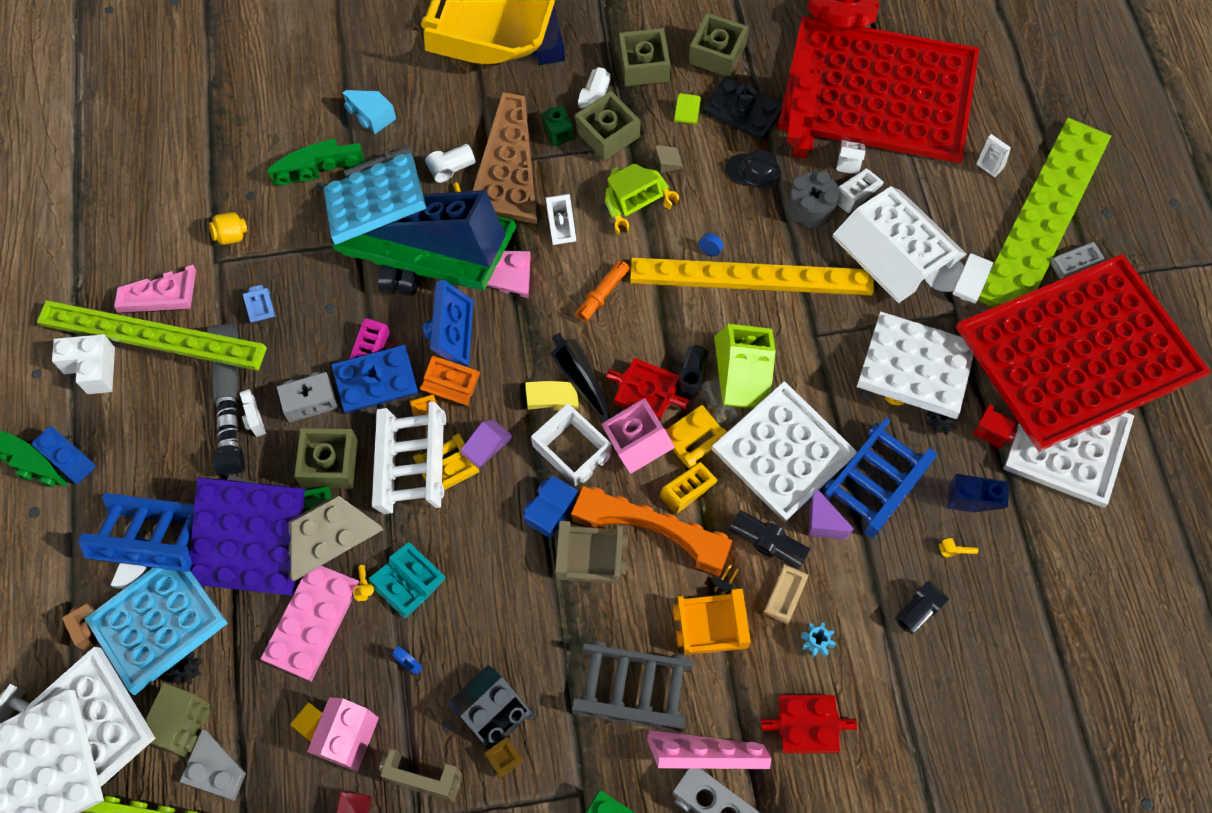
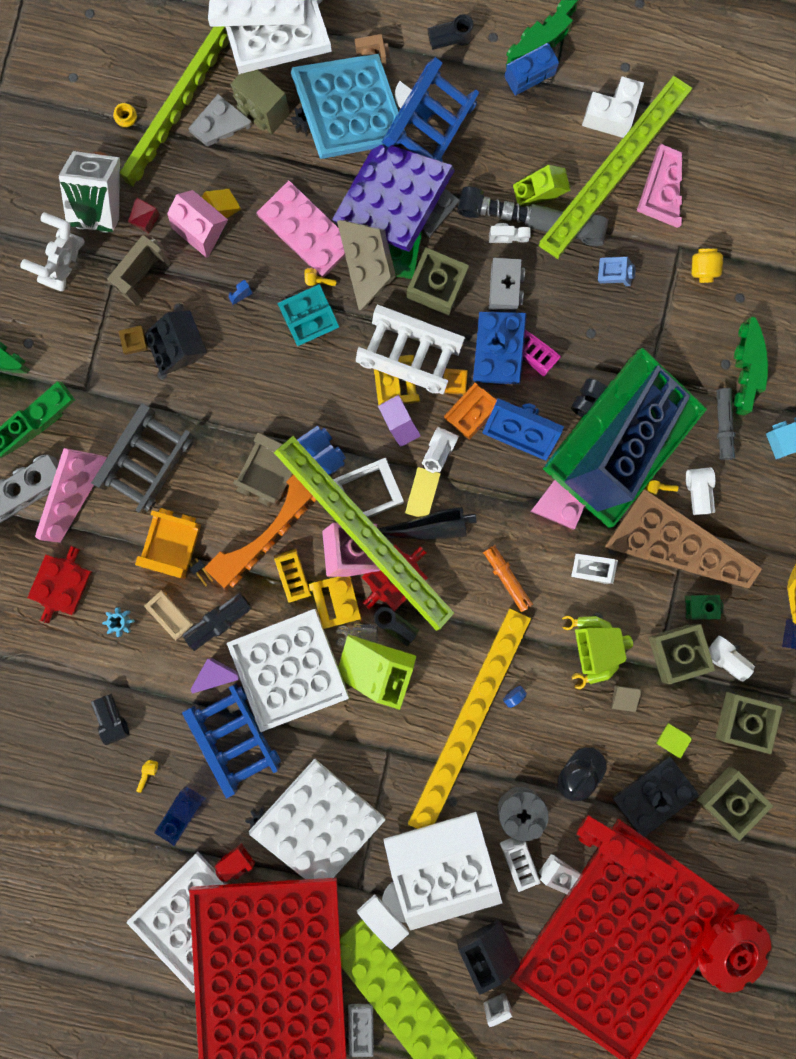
camera: 110 degrees right, 20 degrees up
(42, 552) = (448, 33): none -> black piece
(191, 401) = (542, 186): none -> lime slope
(373, 198) = (680, 402): medium azure plate -> none
(497, 393) = (440, 447): none -> white piece
(613, 427) = (364, 533): none -> lime plate
(953, 182) = (488, 956): none -> black slope

